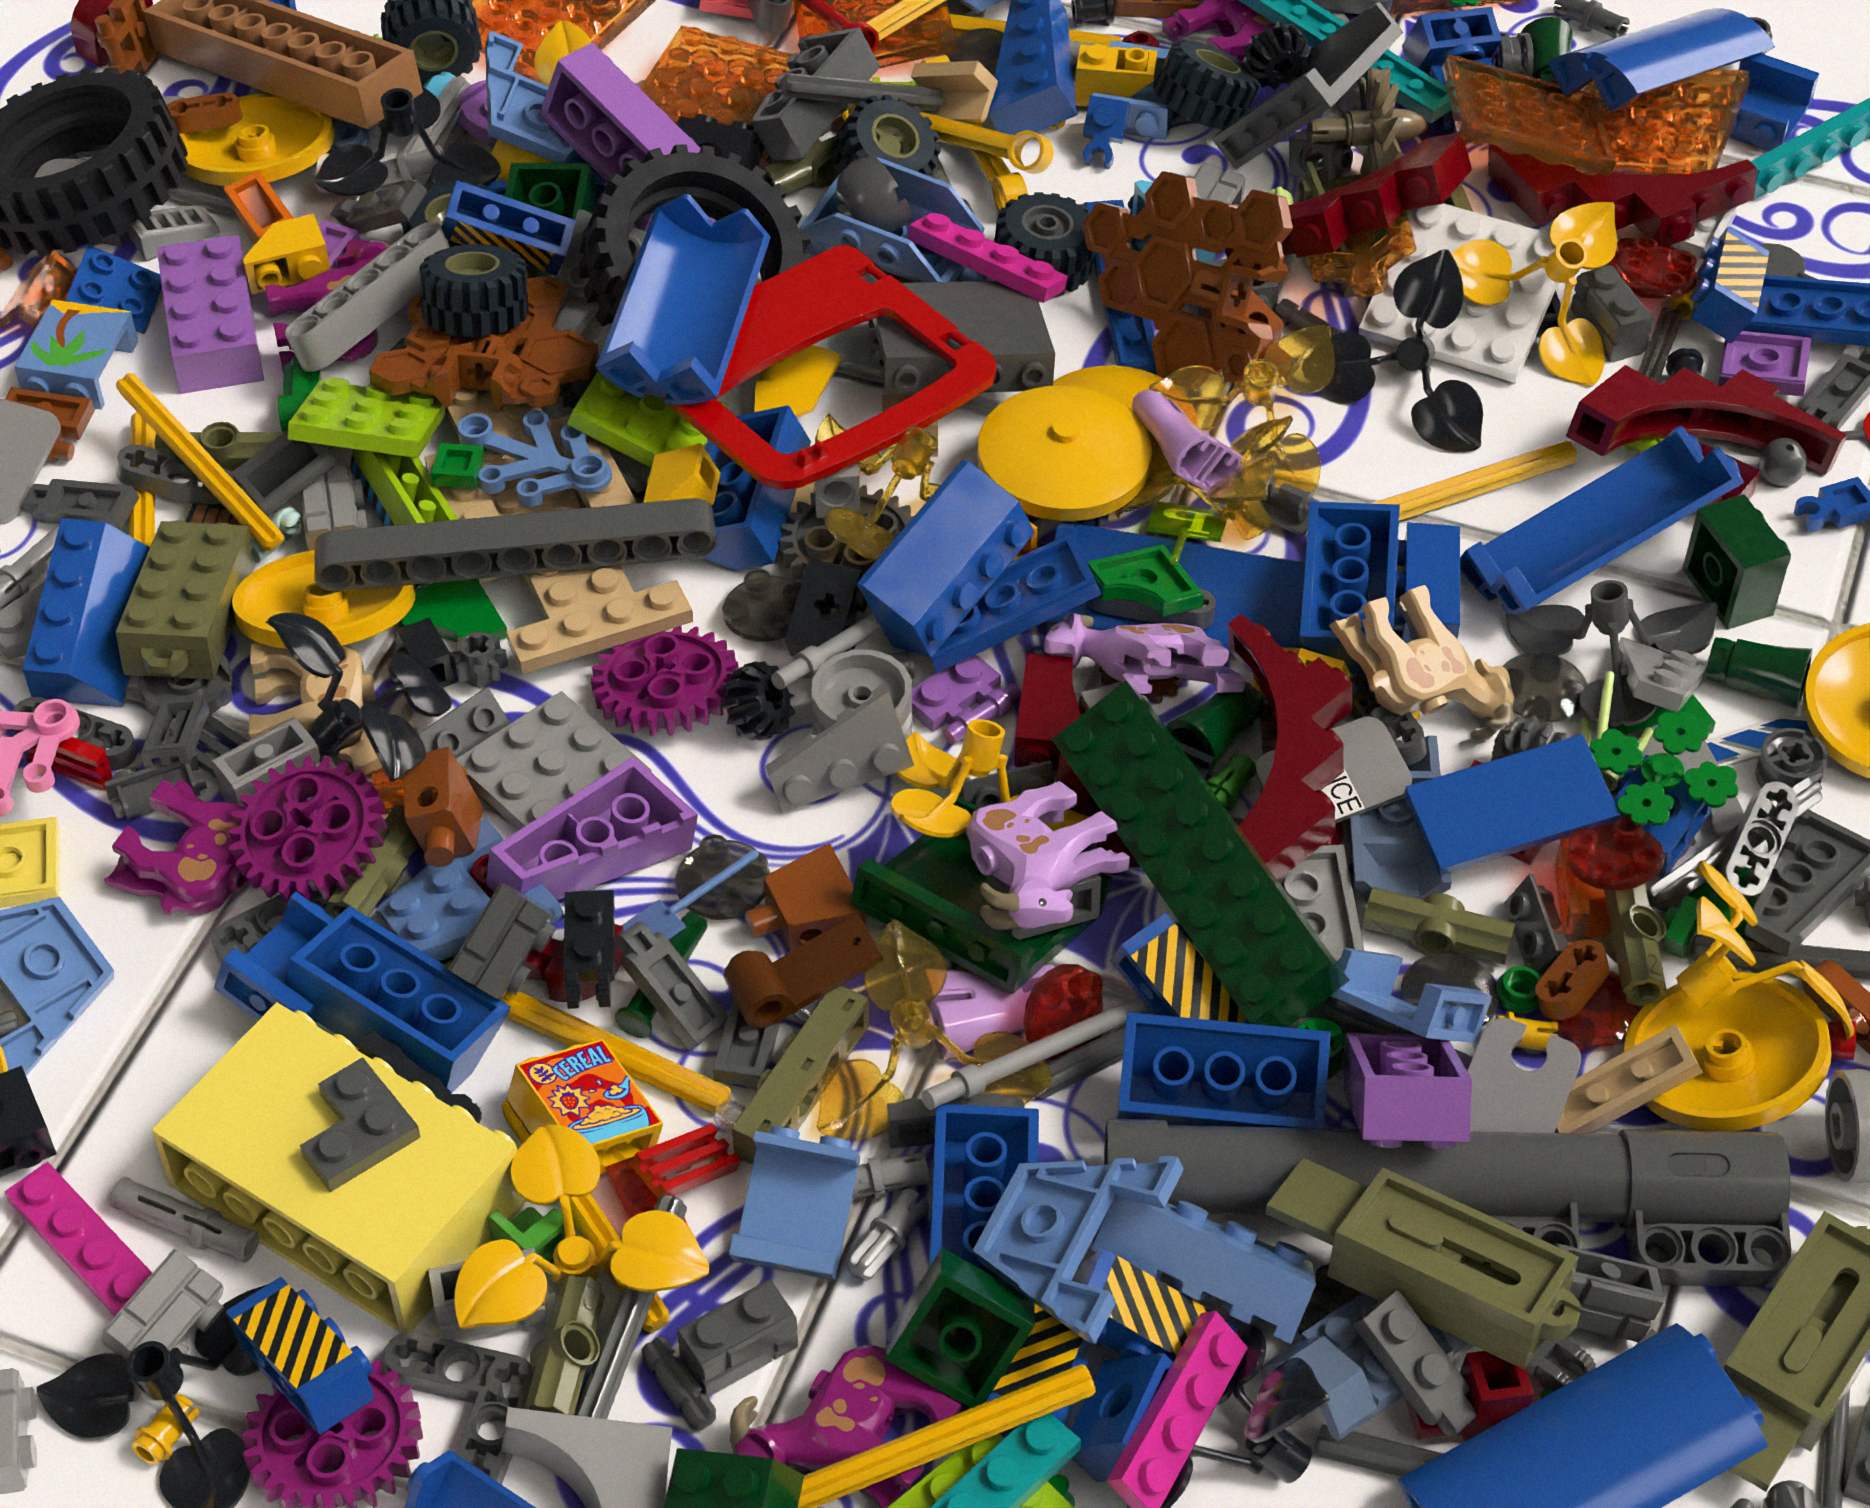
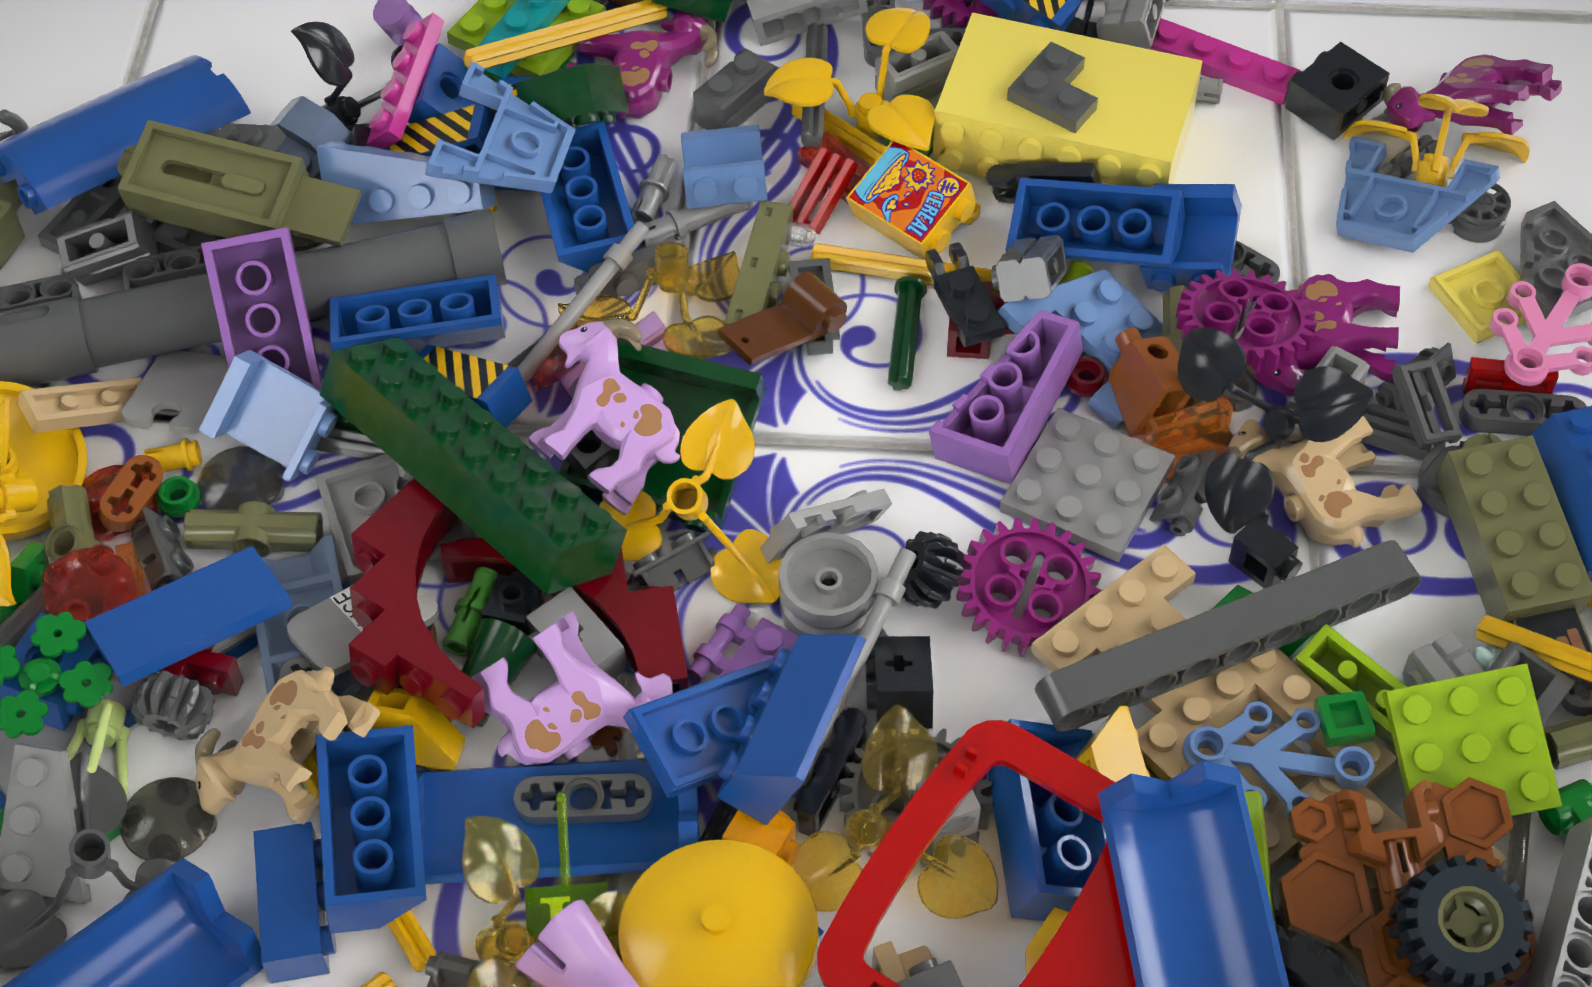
camera: 165 degrees right, 5 degrees up
(290, 588) = (1432, 543): yellow dish -> none
(479, 659) = (1213, 564): dark grey gear -> none
(567, 1346) = (847, 50): olive piece -> none
(664, 919) = (931, 364): medium blue piece -> none
(669, 984) = (890, 300): dark grey hinge -> none
(732, 896) = (892, 422): clear smoke dish -> none
(761, 606) = (970, 695): clear smoke dish -> none
(804, 899) = (807, 411): dark orange torso -> none
(1147, 579) = (596, 799): green tile -> none

